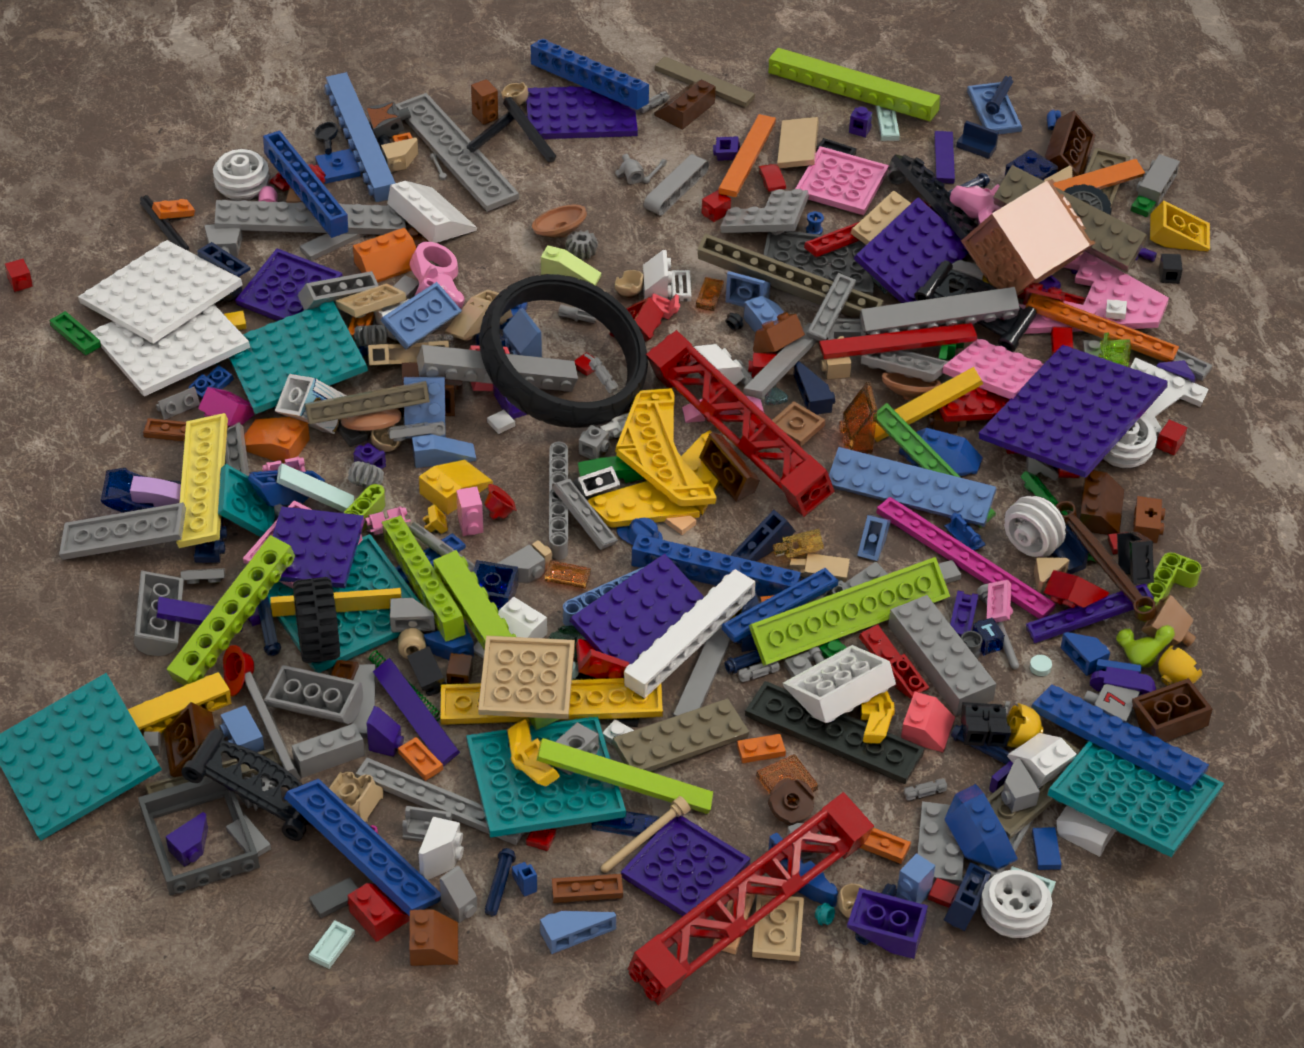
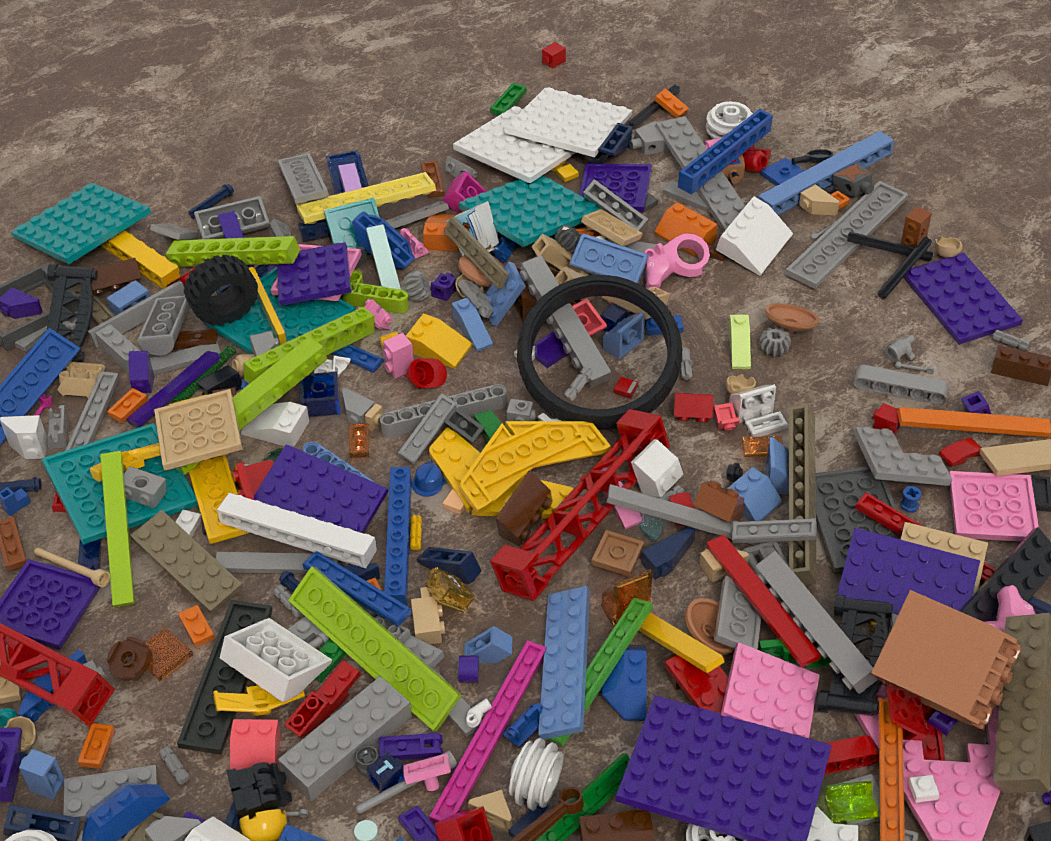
camera: 75 degrees right, 0 degrees up
(86, 614) = (227, 190): none -> dark blue axle
(144, 668) = (174, 231): none -> light grey tile
(153, 741) = (110, 256): light grey piece -> none
(216, 379) = (488, 179): blue slope -> none
(434, 542) = (357, 353): light grey axle -> none
(590, 74) = (1002, 282): blue brick -> none
(895, 554) = (468, 669): none -> dark purple piece
(942, 892) = (51, 804): red tile -> none
(947, 560) = (475, 713): none -> white arm

